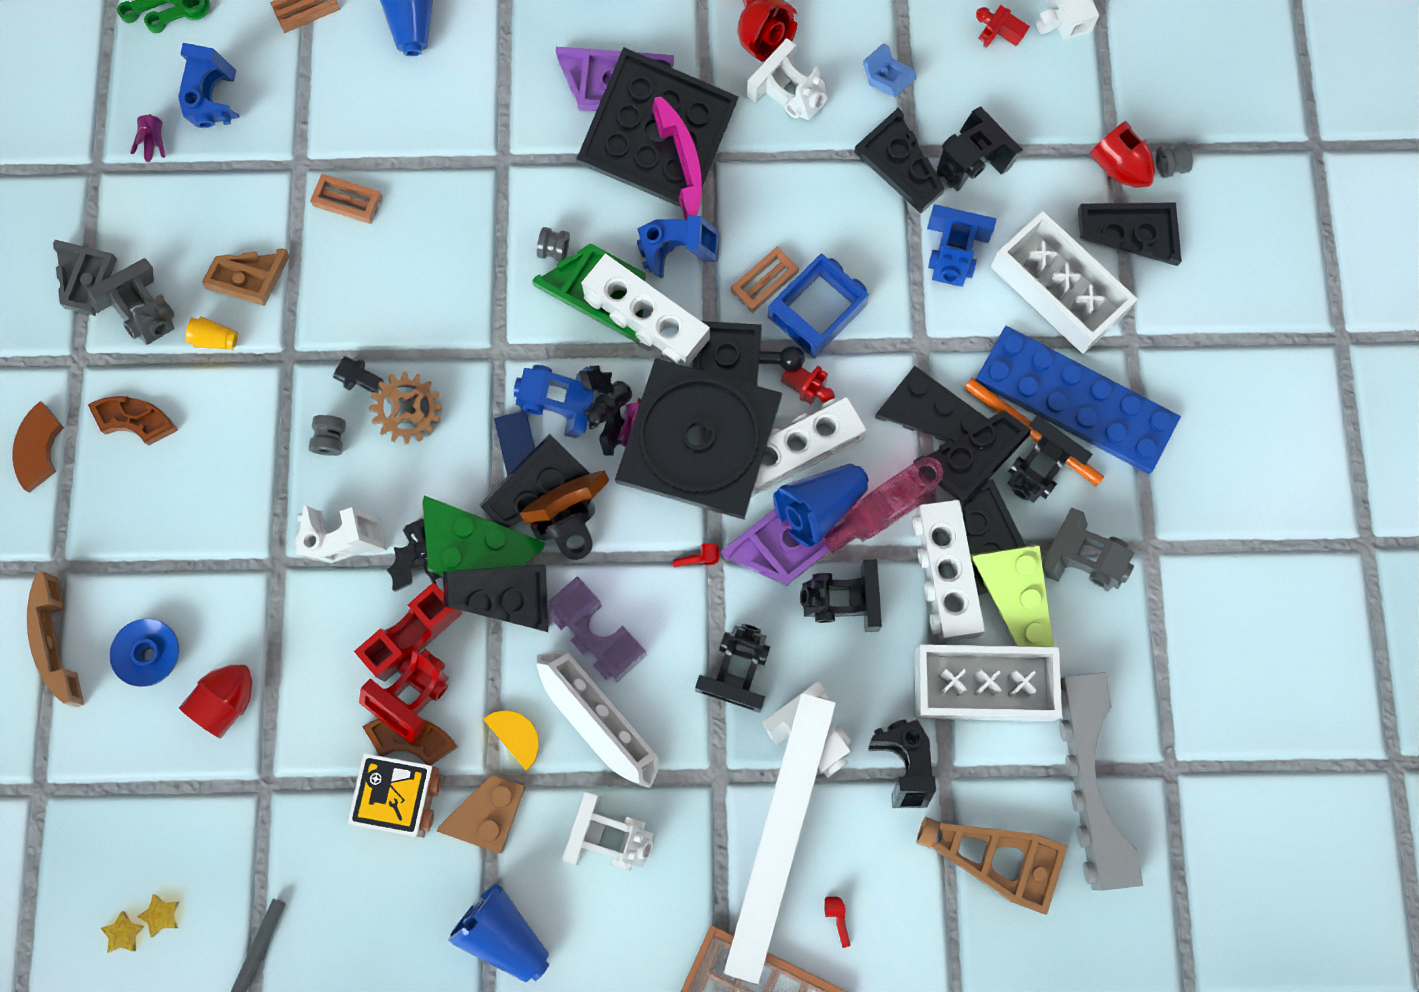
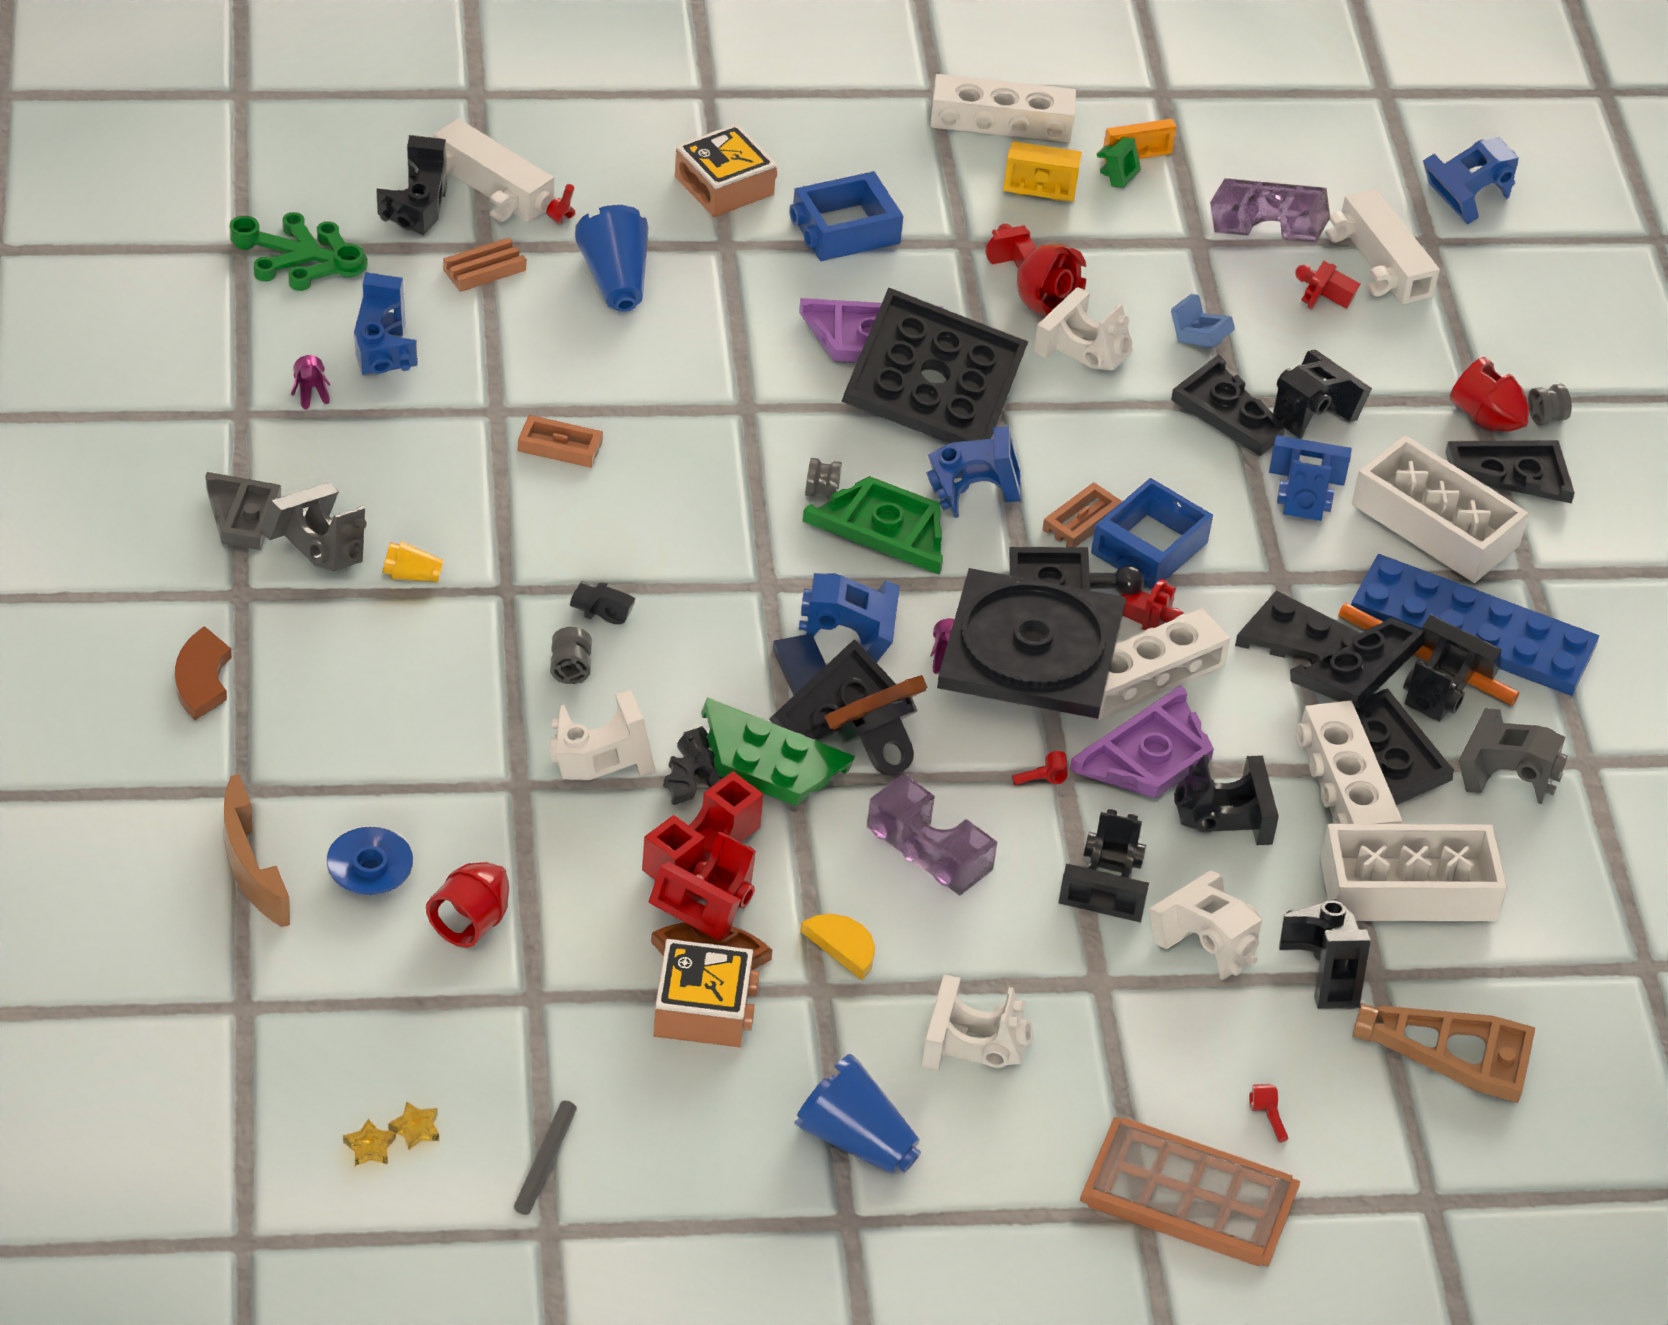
camera: 10 degrees left, 30 degrees down
(132, 415) = (305, 643): dark orange tile -> none
(246, 275) = (446, 509): medium nougat wing -> none
(394, 396) = (666, 626): medium nougat gear -> none
(486, 814) = (816, 1019): medium nougat wing -> none
(500, 593) = (815, 788): black wing -> none
(597, 718) = (979, 946): white brick -> none
(606, 405) = (914, 617): black animal -> none
(611, 277) = (948, 526): white brick -> none
(669, 125) = (957, 358): dark pink slope -> none
(779, 838) = (1189, 1007): white tile -> none
(819, 501) = (1182, 696): blue cone -> none
(880, 510) = (1250, 708): clear pink piece -> none
(1018, 589) = (1430, 779): yellowish green wing -> none
(1109, 855) = (1586, 1034): light grey arch -> none

